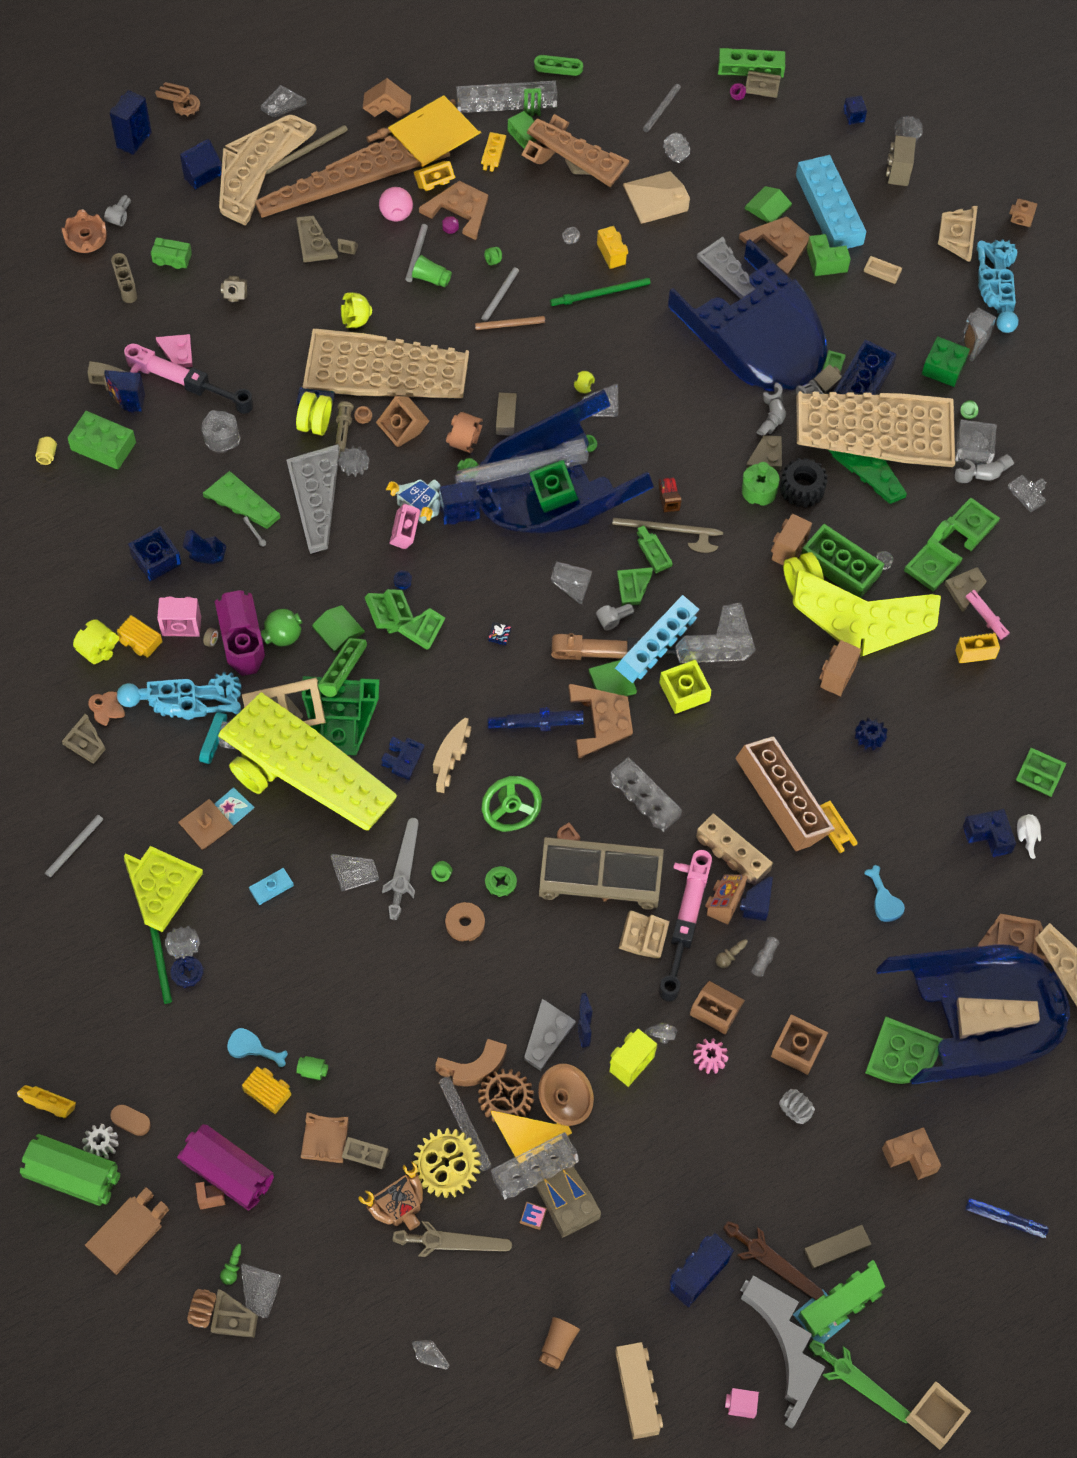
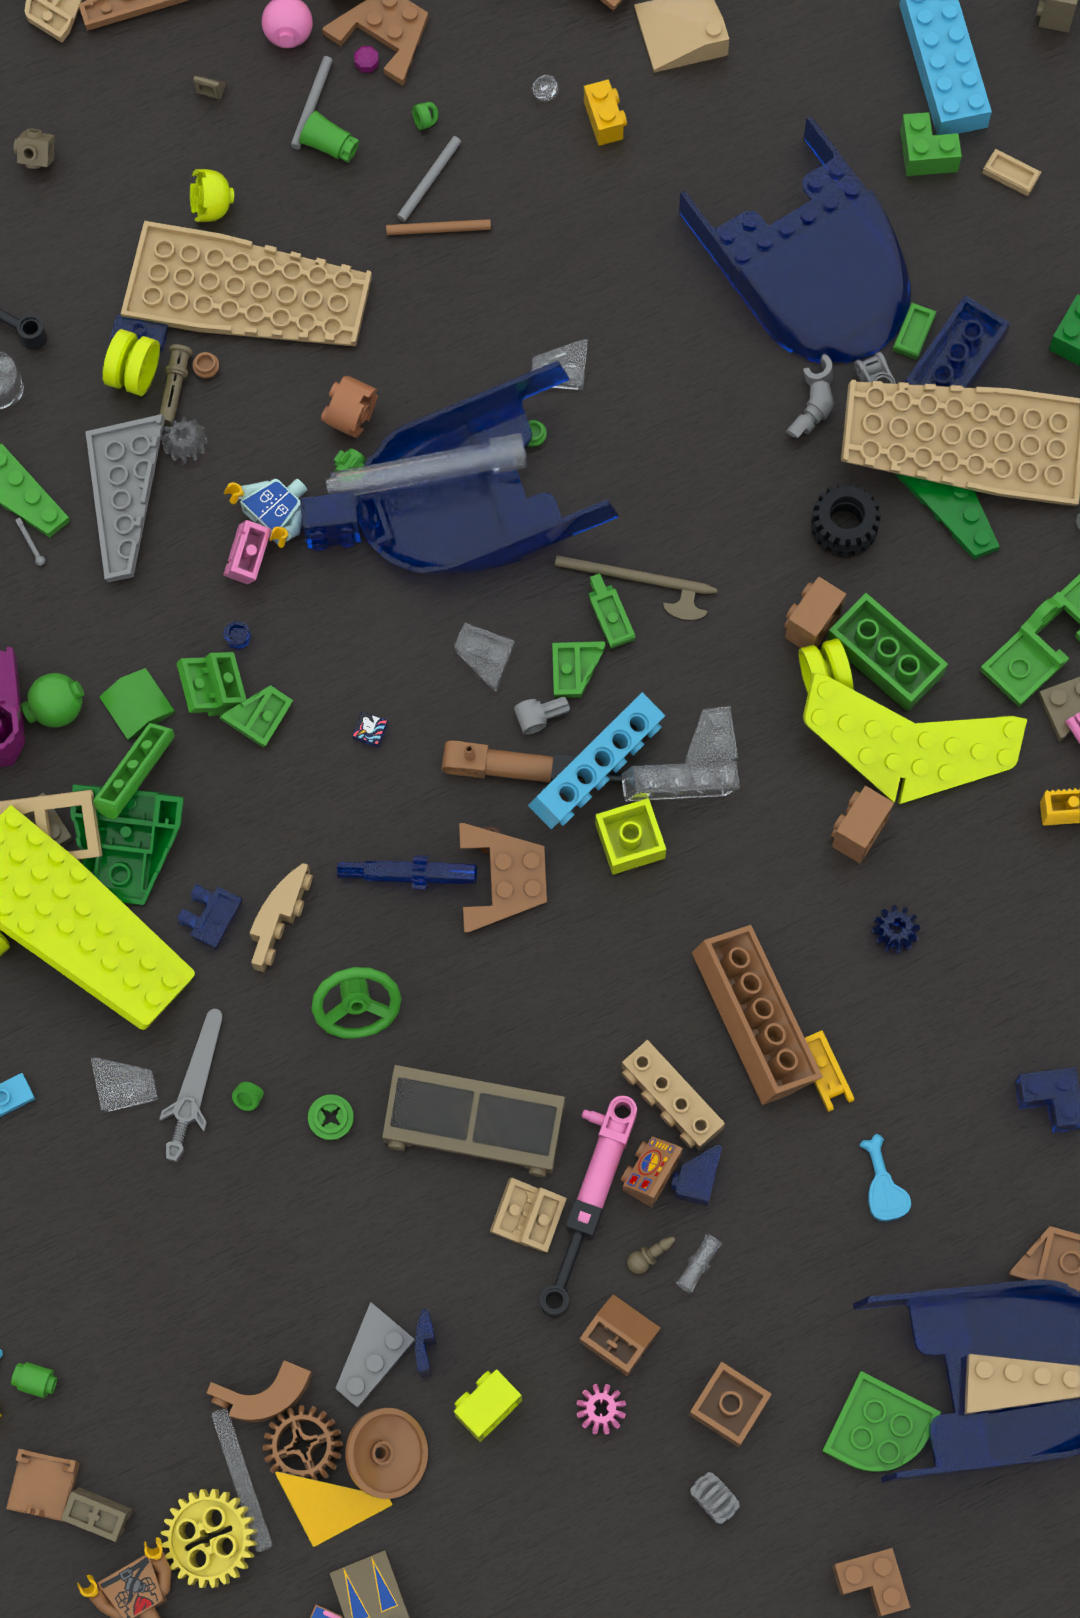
camera: 10 degrees right, 10 degrees up
(313, 241) = (158, 74): dark tan wing -> none
(402, 420) = (261, 379): medium nougat slope -> none
(468, 911) = (269, 1158): medium nougat tile -> none
(506, 414) = (416, 377): dark tan slope -> none
(539, 1156) = (315, 1551): clear brick -> none
(553, 486) = (471, 503): green brick -> none
(568, 298) = (529, 192): green bar -> none
(568, 832) = (434, 1053): nougat tile -> none
(584, 382) = (537, 333): neon yellow piece -> none
(611, 680) = (519, 820): bright green tile -> none
(643, 784) = (533, 961): clear brick -> none
(664, 1031) = (537, 1367): clear piece -> none
(669, 494) = (644, 524): leg -> none
(723, 264) = (769, 149): light grey wing -> none
(760, 484) = (769, 515): bright green brick -> none
(768, 451) = (798, 467): dark tan wing -> none
(769, 204) = (851, 53): bright green slope -> none
(784, 237) = (868, 108): medium nougat wing -> none
(828, 378) = (903, 352): dark tan brick -> none
(886, 558) = (951, 651): clear tile -> none

